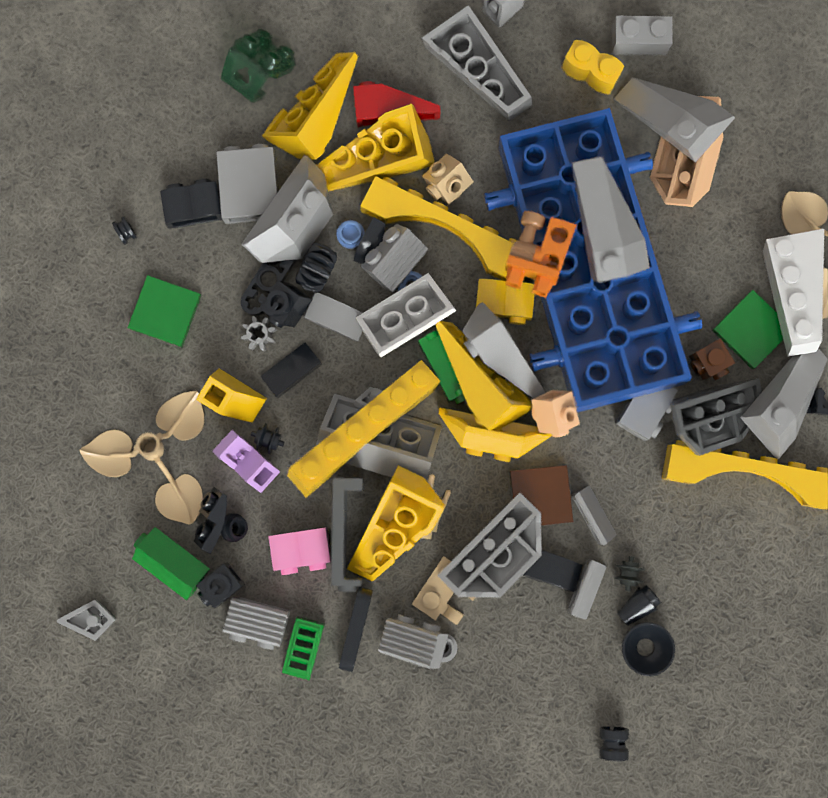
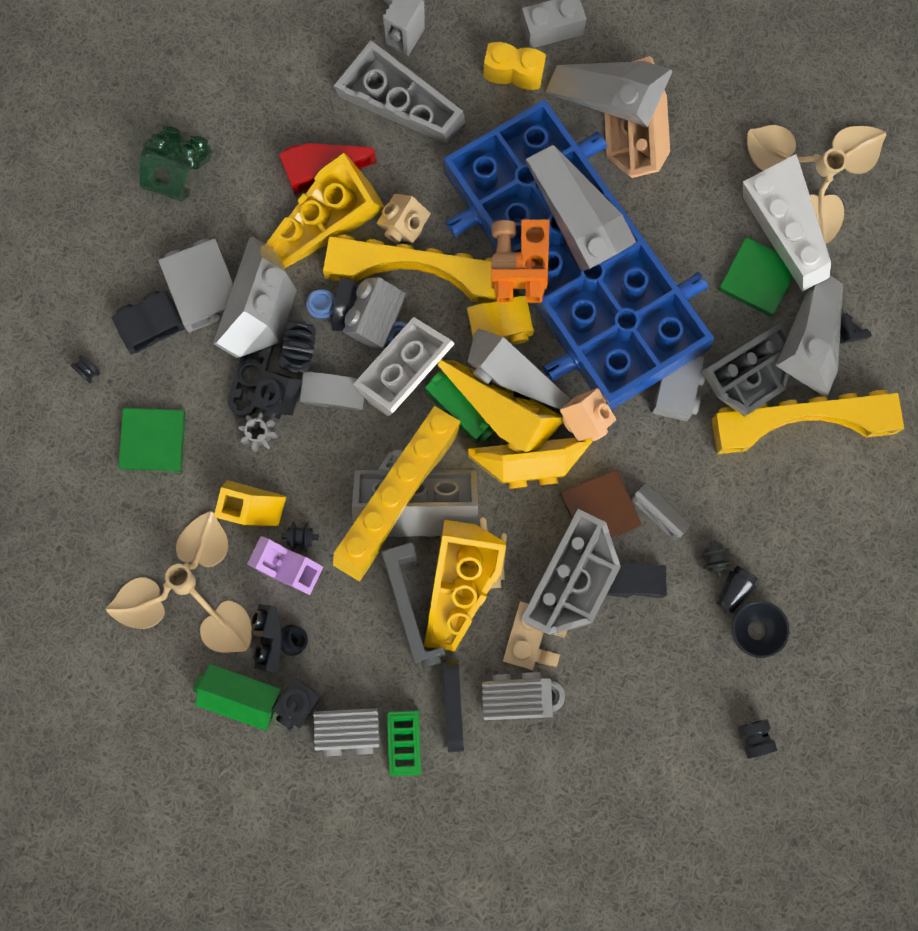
camera: 20 degrees left, 5 degrees down
(89, 620) = (168, 785): light grey piece -> none
(291, 370) = (303, 460): black slope -> none
(300, 549) = (369, 640): bright pink brick -> none
(313, 119) = (247, 200): yellow wedge -> none
(586, 589) = (677, 589): light grey slope -> none
(712, 361) = (728, 319): reddish brown brick -> none

